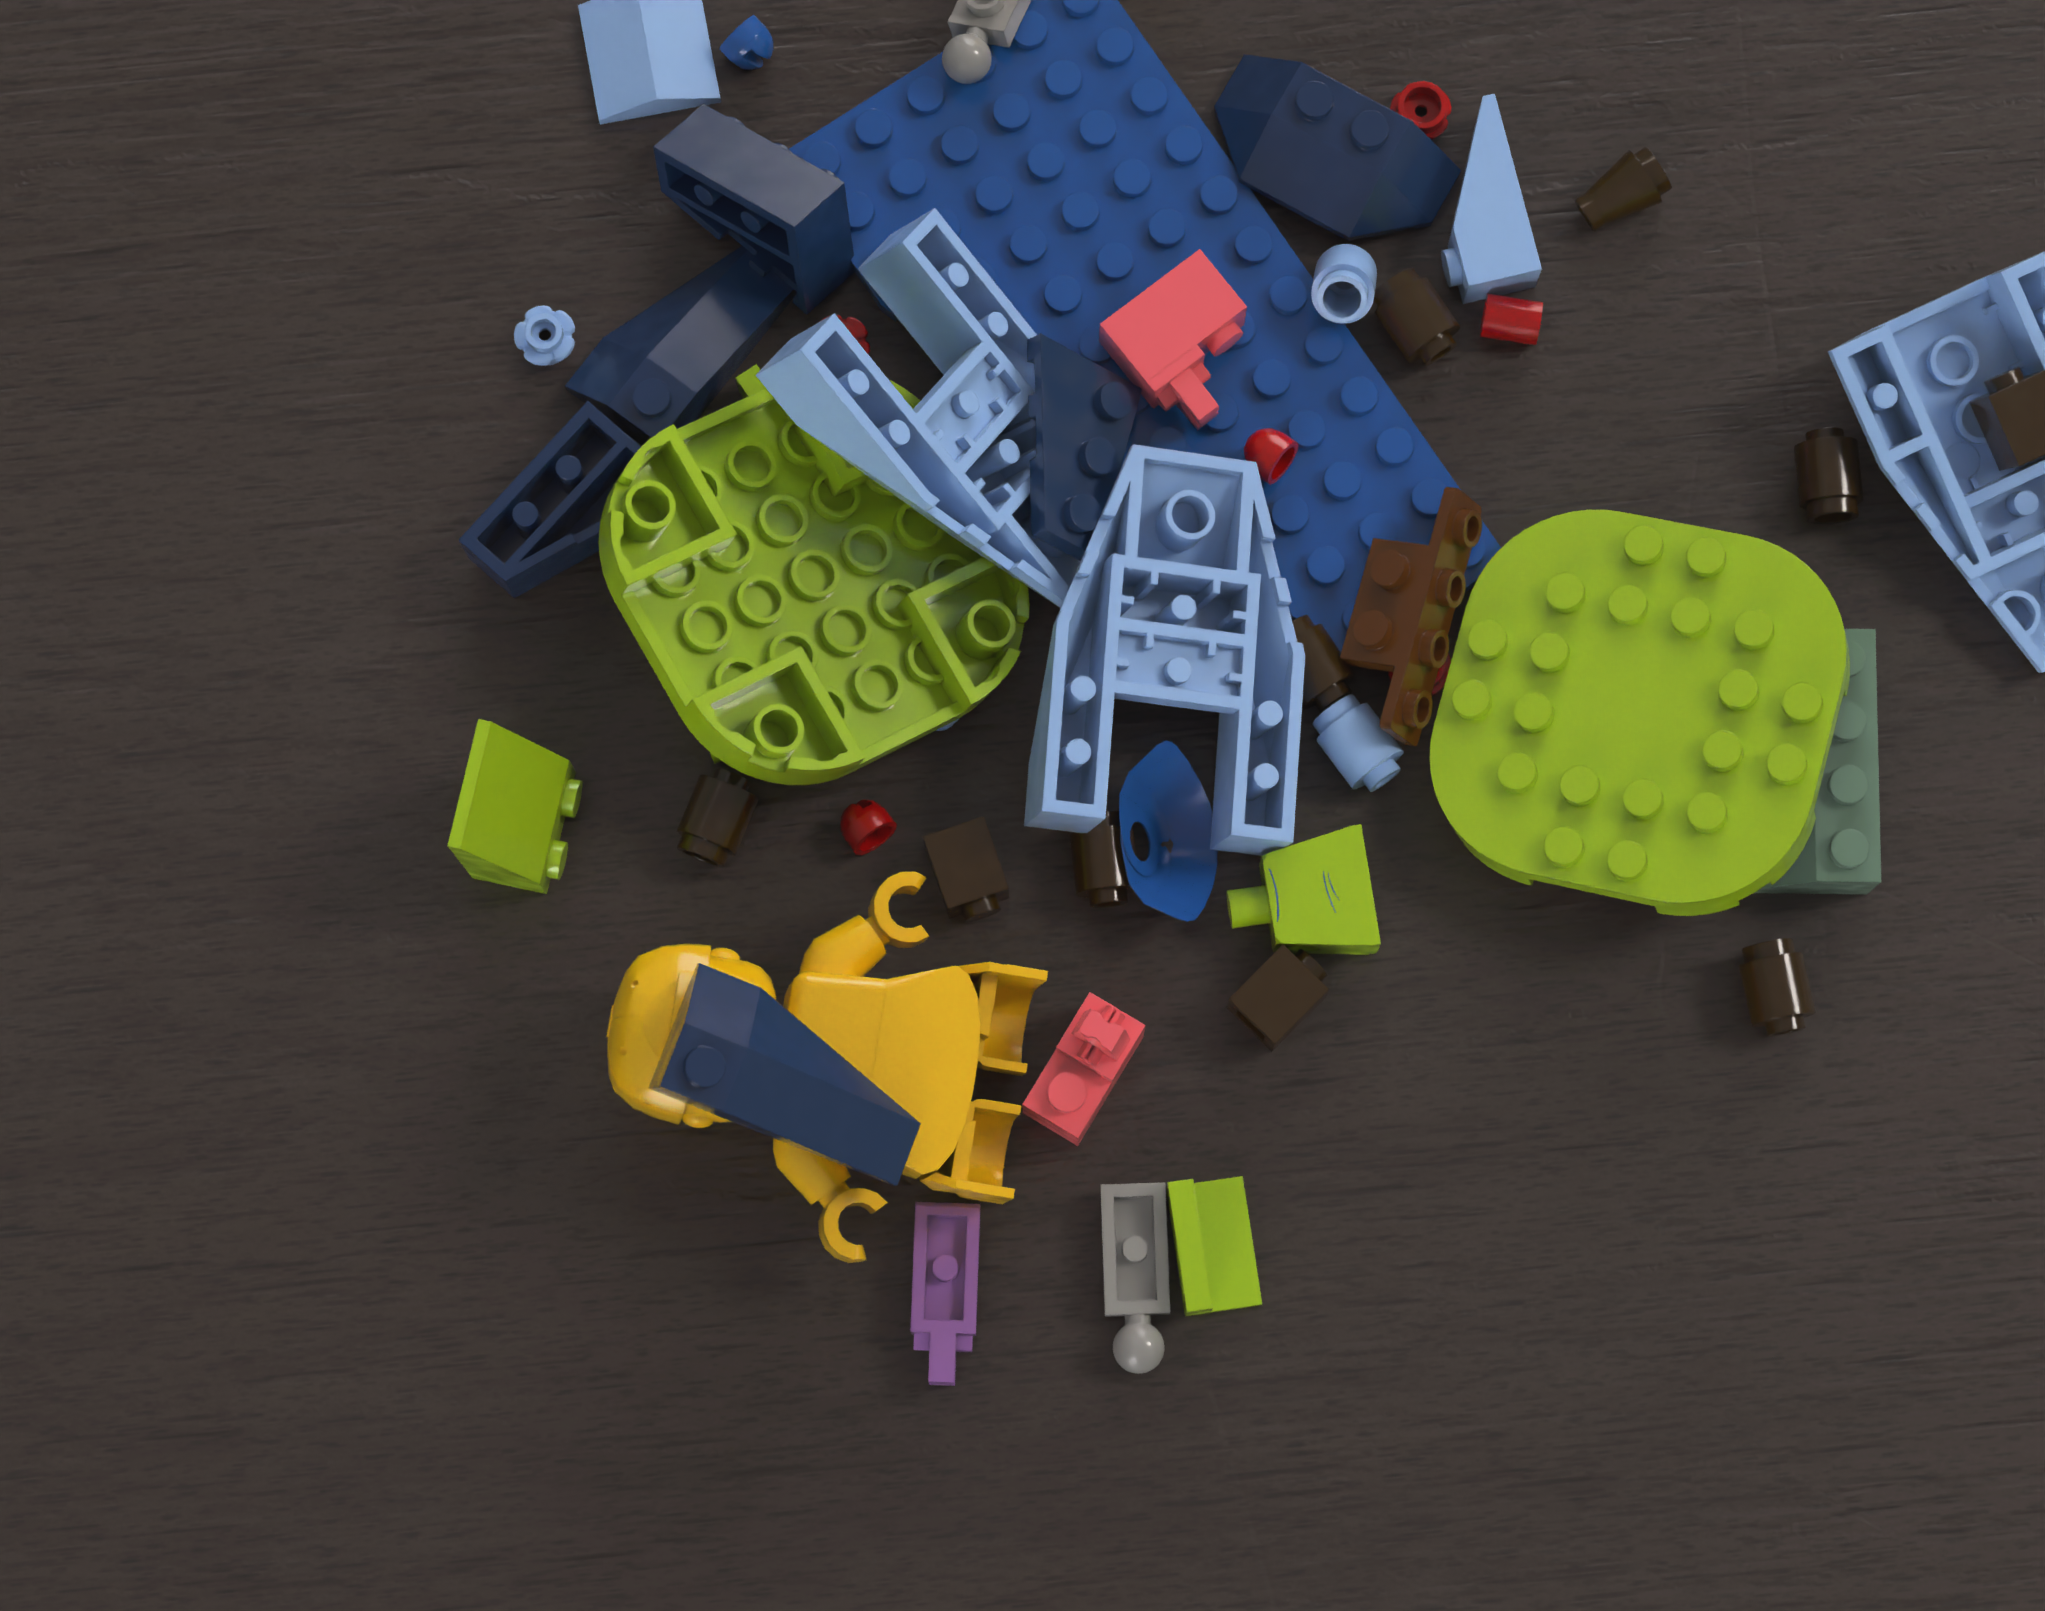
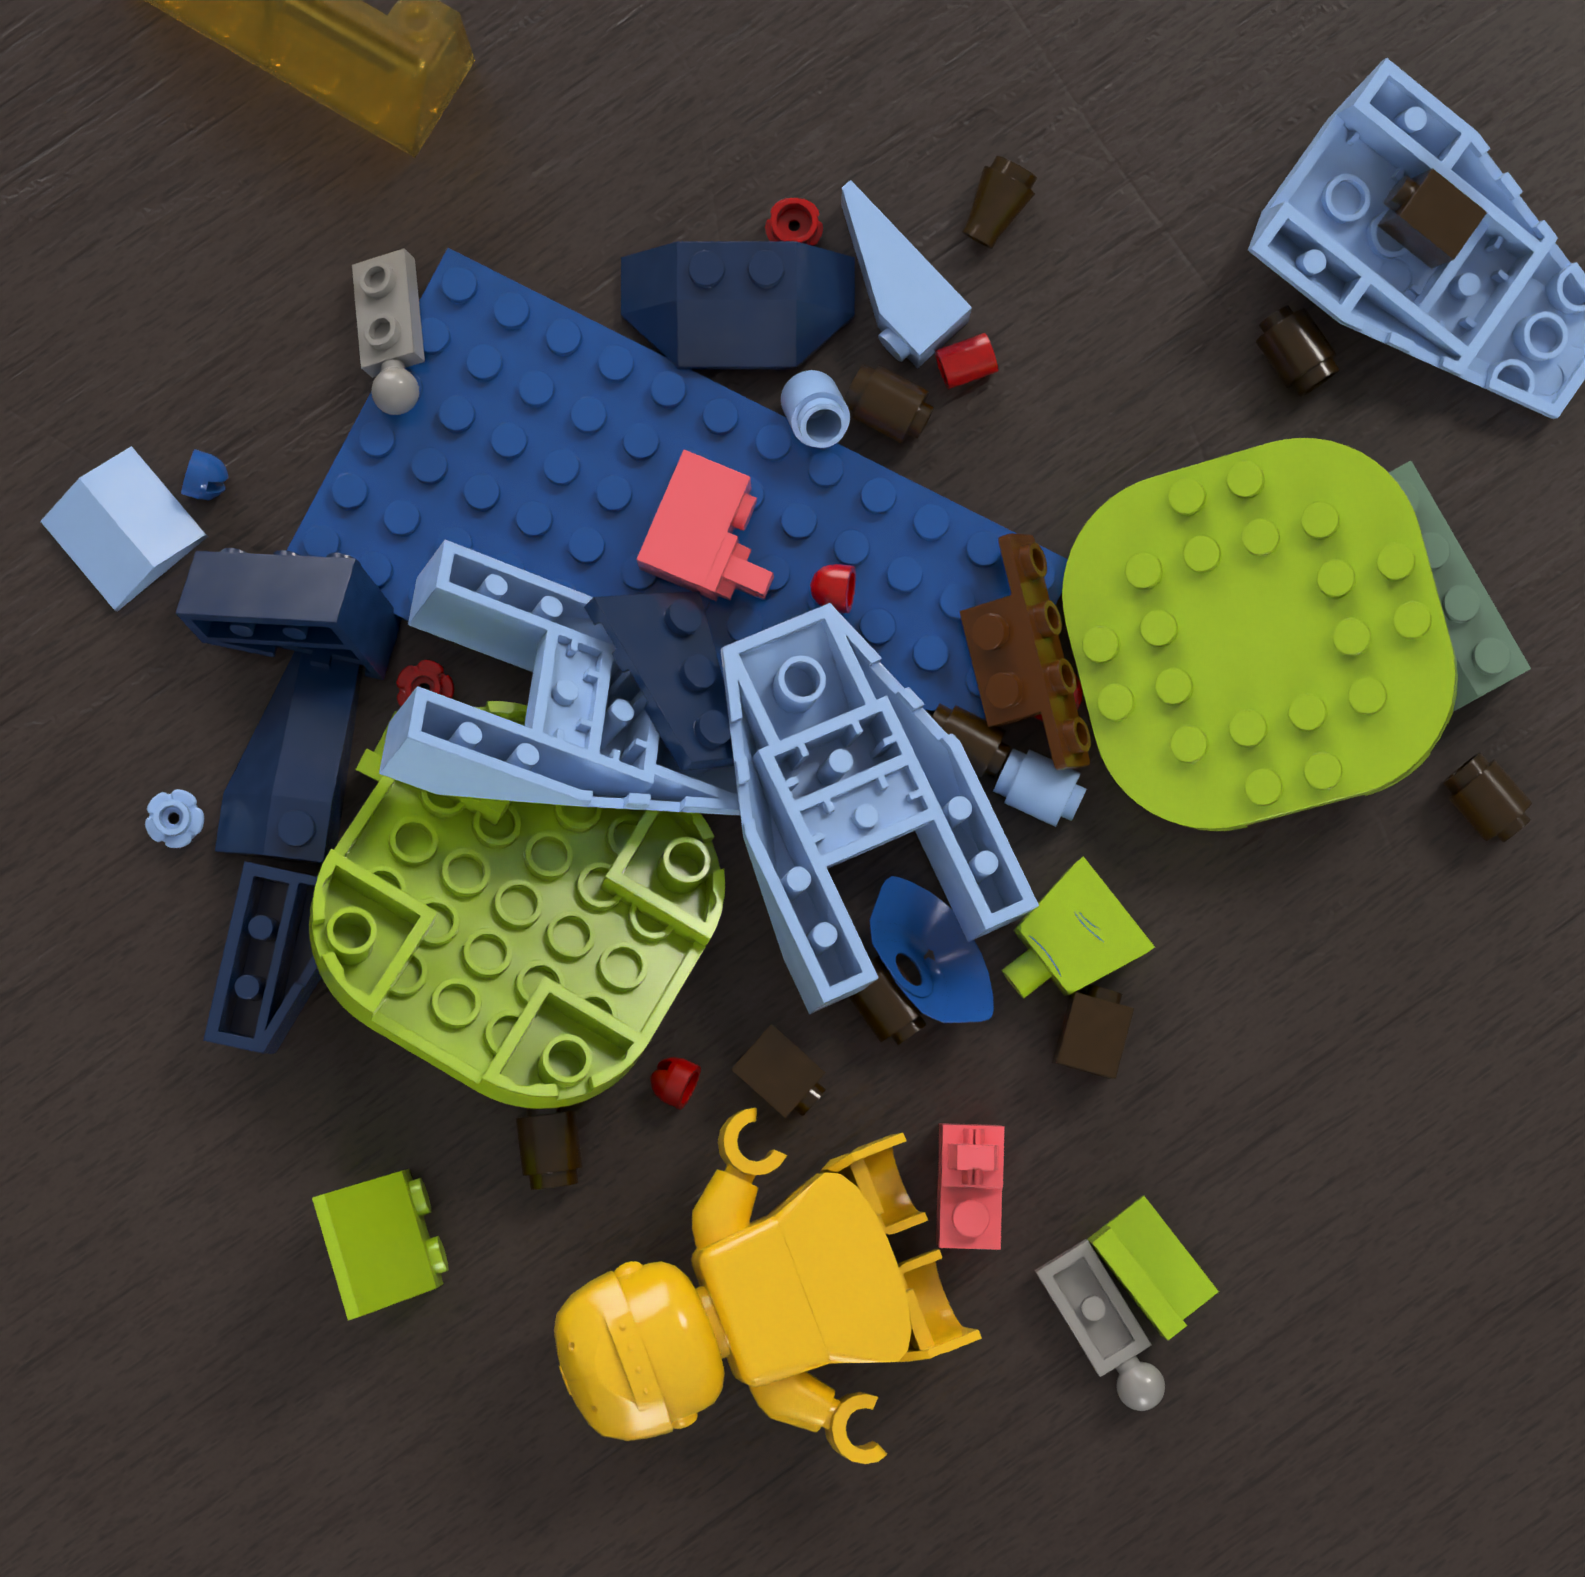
camera: 30 degrees left, 5 degrees up
(767, 1071) = (726, 1361): dark blue wedge -> none
(945, 1284) = (955, 1426): medium lavender hinge -> none

